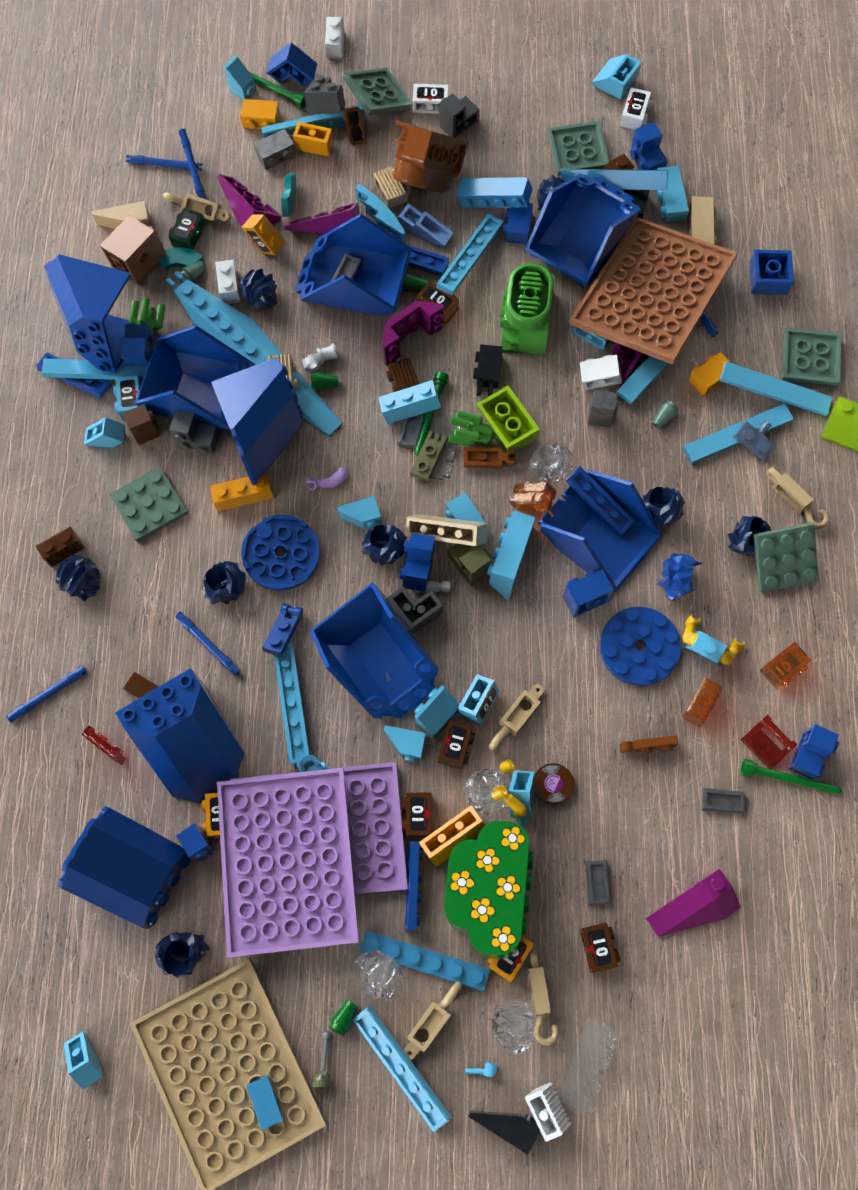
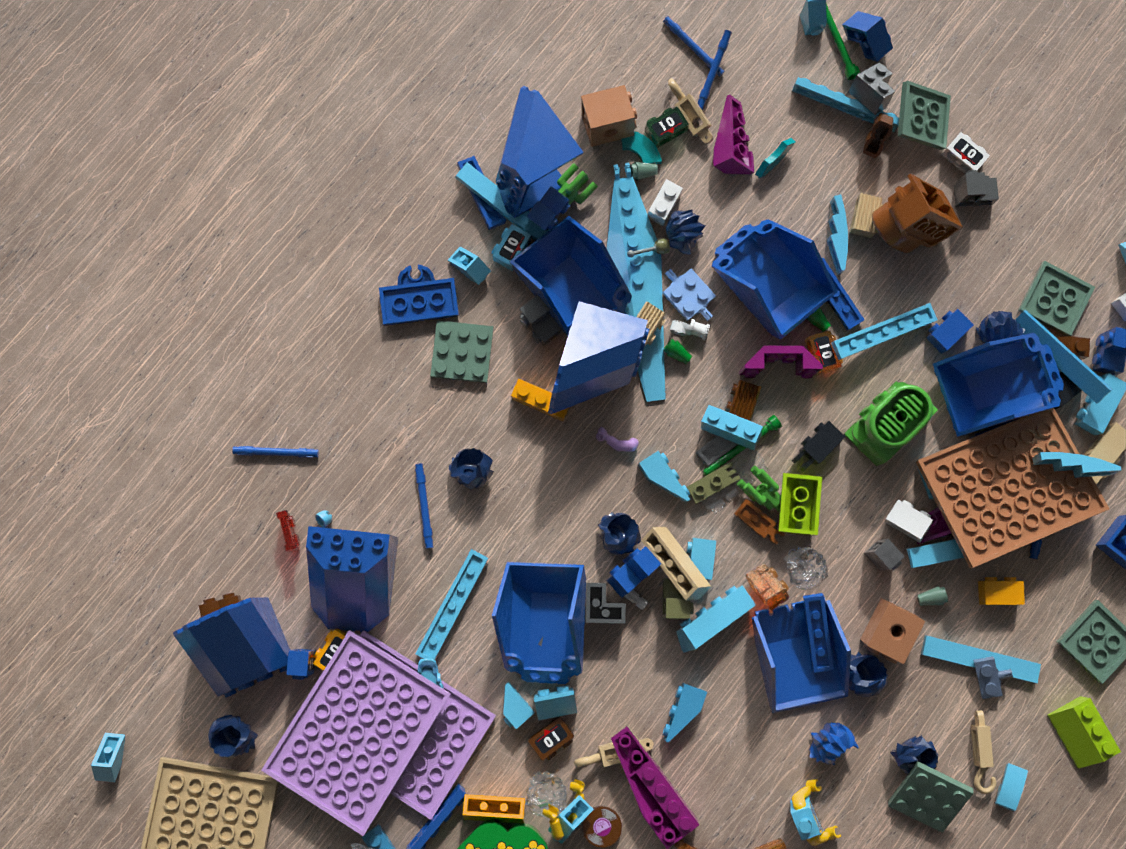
camera: 30 degrees right, 10 degrees up
(60, 546) = (368, 337): reddish brown brick -> none
(78, 577) = (363, 376): dark blue hair -> none
(81, 488) = (418, 298): none -> blue plate
(114, 216) = (622, 74): tan slope -> none
(139, 686) = (350, 507): reddish brown tile -> none
(142, 424) = (503, 281): reddish brown brick -> none
(250, 314) = (661, 247): none -> hinge
(259, 113) = (807, 61): light orange brick -> none
(263, 234) = (724, 183): light orange brick -> none
(275, 149) = (795, 104): flat silver brick -> none
(282, 630) = (488, 542): blue plate -> none
(291, 569) = (538, 494): blue plate -> none
(300, 334) = (689, 294): none -> light blue plate
(313, 139) = (834, 120): light orange brick -> none
(324, 222) = (793, 213): magenta wedge -> none
(334, 38) = (927, 32): white brick -> none
(348, 266) = (767, 268): flat silver tile -> none
(361, 513) = (622, 492): medium azure slope -> none
(381, 478) = (659, 473): none -> medium azure slope
(418, 815) = (481, 770): brick -> none
(424, 226) = (866, 273): light blue slope -> none
(479, 699) = (595, 718): medium azure brick -> none
(494, 192) = (948, 291): dark azure brick -> none
(544, 633) = (688, 705): none -> dark azure slope
(574, 720) = (653, 791): none -> magenta wedge
(588, 592) = (747, 701): blue brick -> none
(637, 666) = (751, 751): blue plate -> none
(654, 457) = (893, 644): none -> nougat brick
(690, 236) = (1080, 464): none -> medium azure slope
(775, 388) = (1043, 648): medium azure tile -> none
(840, 506) = (1011, 787): none -> medium azure slope

